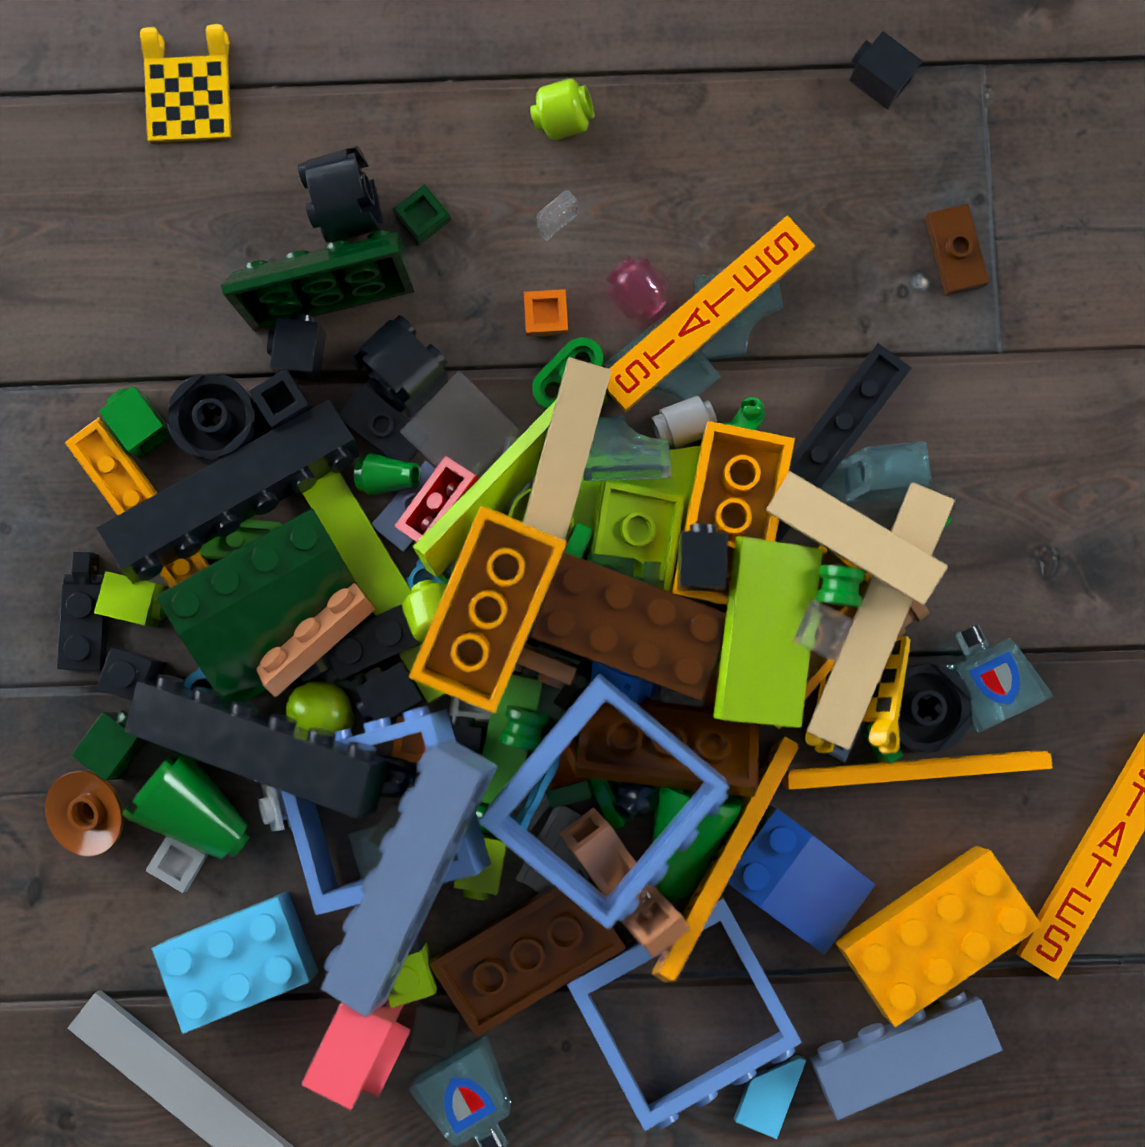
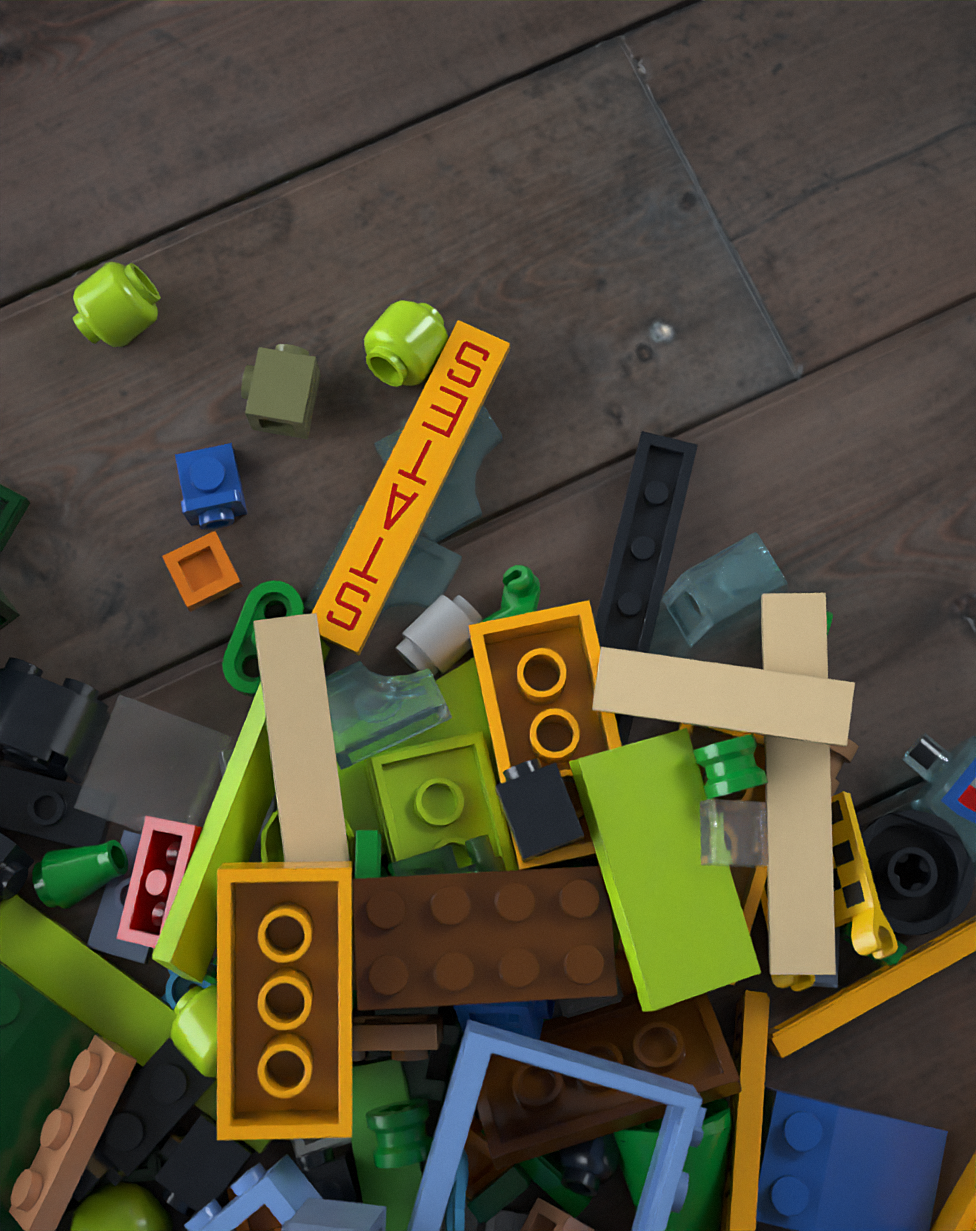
camera: 25 degrees left, 5 degrees down
(556, 214) = (164, 440): clear tile -> none
(574, 259) = (211, 486): none -> blue bracket
(637, 288) = (306, 490): clear pink head -> none
(648, 214) = (281, 390): none -> olive brick
(744, 216) = (405, 343): none -> lime head
(884, 69) = (500, 90): black brick -> none
(956, 249) = (688, 273): reddish brown plate -> none

